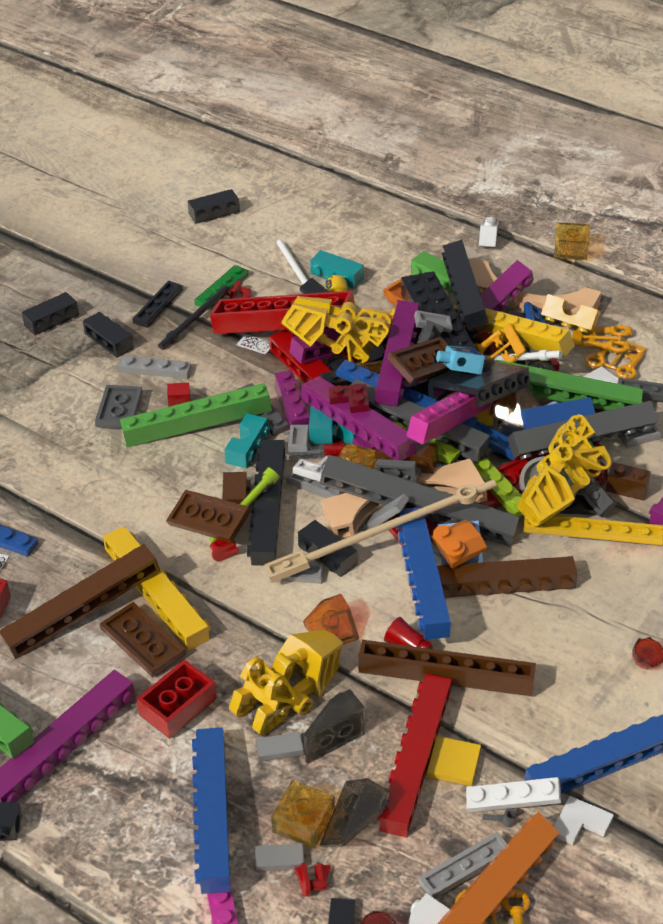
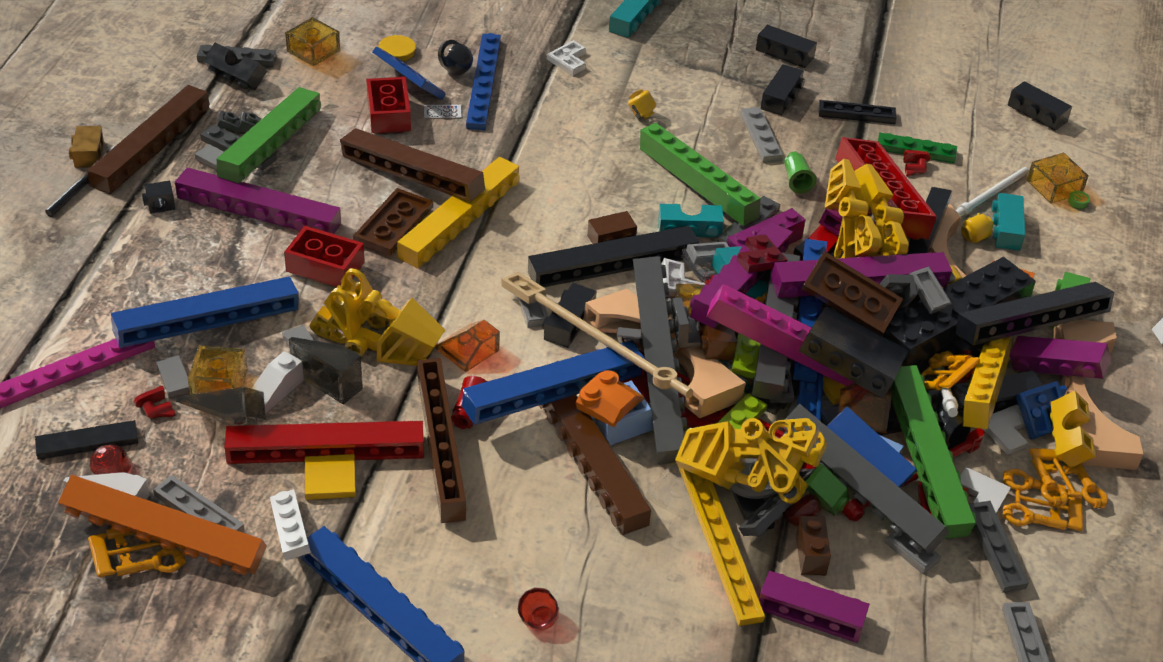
camera: 65 degrees right, 0 degrees up
(78, 423) = (642, 103): none -> yellow head
(116, 404) = (689, 124): dark grey plate -> none
(173, 335) = (813, 133): black bar -> none
(178, 393) = (726, 157): red panel -> none
(208, 516) = (562, 217): reddish brown plate -> none
(221, 358) = (799, 174): none -> bright green plant
(222, 550) = (534, 243): red piece -> none
(269, 477) = (628, 237): lime piece -> none
(302, 228) = (1056, 177): none -> clear yellow brick
(324, 770) = (279, 379): none -> white slope
(326, 228) = (1079, 199): none -> bright green tile
(462, 359) = (866, 318): medium azure torso -> none
(505, 818) = (269, 529): dark grey hand -> none
(580, 815) = (291, 592): white tile -> none

